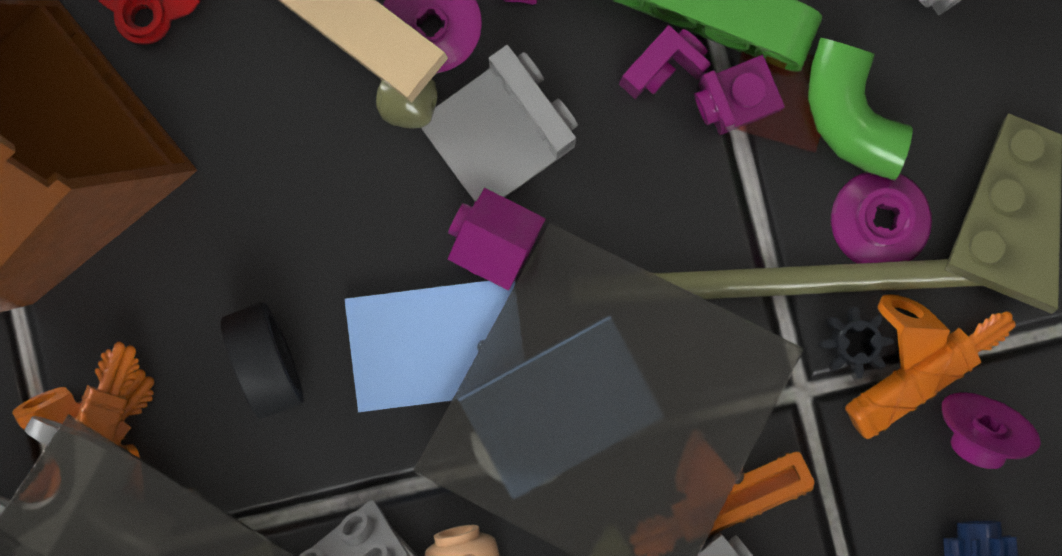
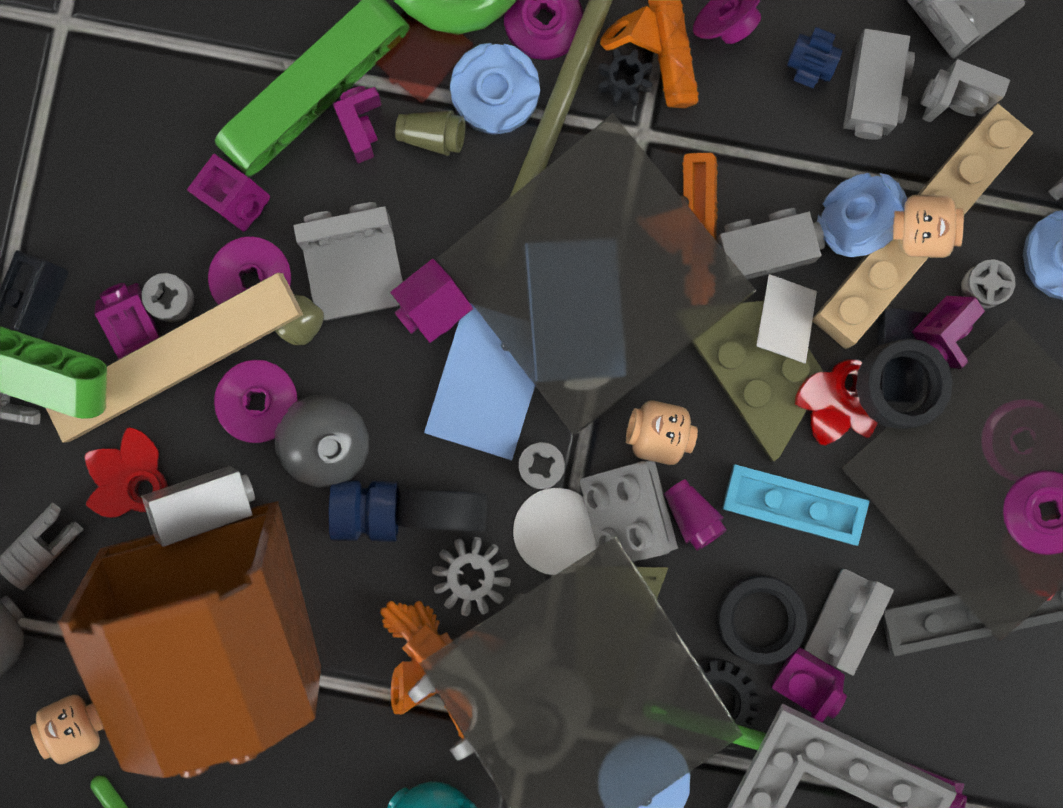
camera: 65 degrees left, 0 degrees up
(147, 85) = (198, 505): none -> light grey brick
(185, 426) = (465, 590): none -> light grey gear
(224, 271) = (364, 511): none -> dark blue wheel
(281, 189) = (322, 441): none -> dark grey cylinder
(284, 70) = (233, 400): none -> magenta piece
(300, 496) = (553, 530): none -> white sticker
(378, 447) = (541, 474): none -> light grey wheel
(692, 151) = (432, 131): none -> olive cone
(738, 95) = (407, 79): magenta bracket -> none
(775, 199) = (495, 88): none -> light blue tile

